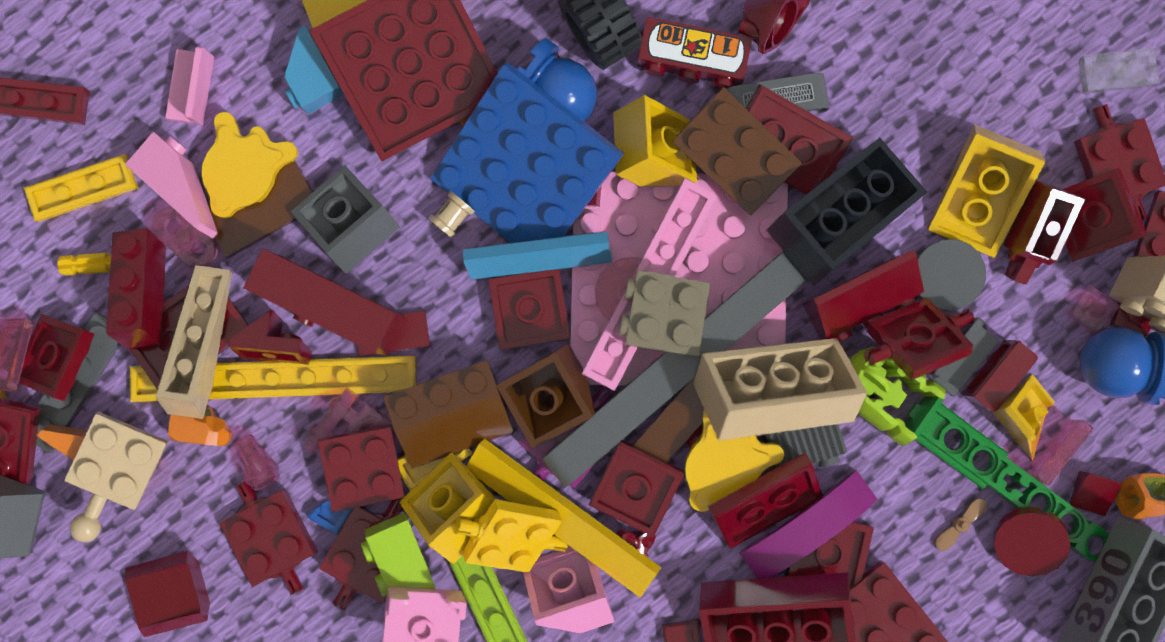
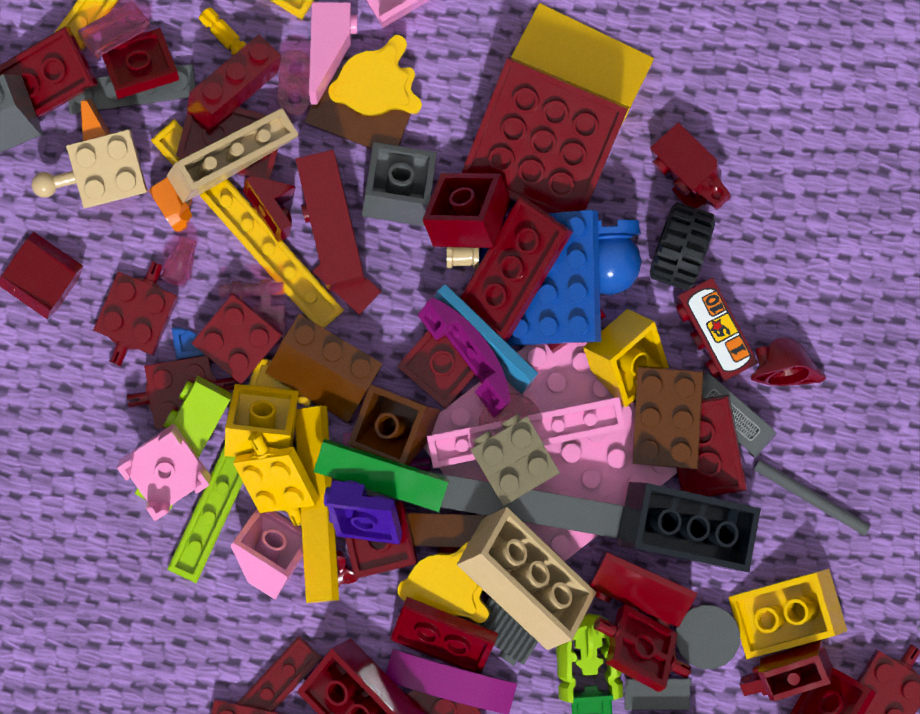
camera: 45 degrees right, 0 degrees up
(309, 75) = (479, 76): dark azure slope -> none
(414, 177) = (466, 210): none -> dark red brick
(498, 174) = (515, 266): none -> dark red tile
(539, 270) = (473, 348): none -> magenta slope
(583, 441) = (381, 475): none -> green tile
(602, 490) = (361, 516): none -> dark purple plate
(901, 90) = (812, 497): none -> dark grey bar

